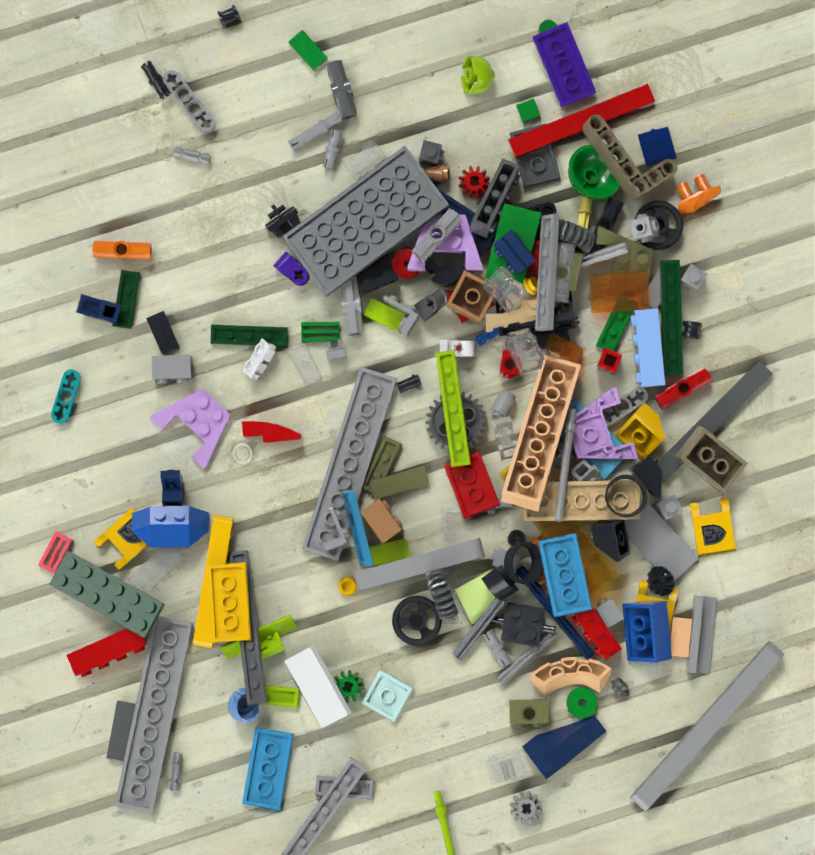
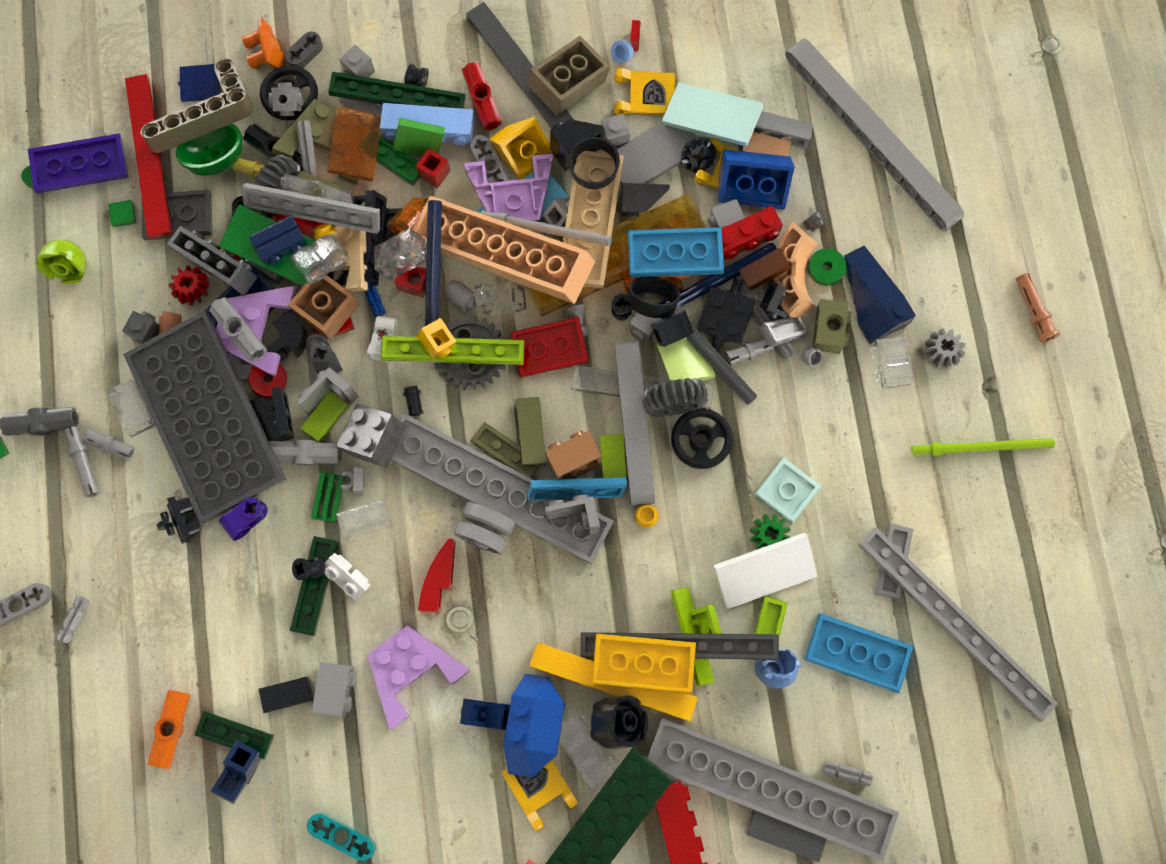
camera: 80 degrees left, 10 degrees down
(182, 590) = (618, 722): none -> black brick
(260, 332) = (305, 568): none -> black bush
(312, 460) = (485, 525): none -> light grey wheel
(372, 357) = (371, 435): none -> flat silver brick
(462, 397) = (439, 332): none -> yellow brick
(500, 700) = (812, 356): none -> light grey hinge
(517, 379) = (433, 261): none -> dark blue axle
(517, 674) = (784, 330): none -> light grey tile
(540, 660) = (772, 298): none -> black bracket
(566, 650) = (764, 269): none -> reddish brown tile
(630, 344) = (417, 137): none -> bright green tile
(696, 587) = (712, 114): none -> light aqua tile
(698, 232) = (304, 50): none -> dark grey beam
(745, 500) = (622, 51): none -> light blue tile
(762, 509) = (635, 34): none -> red tile

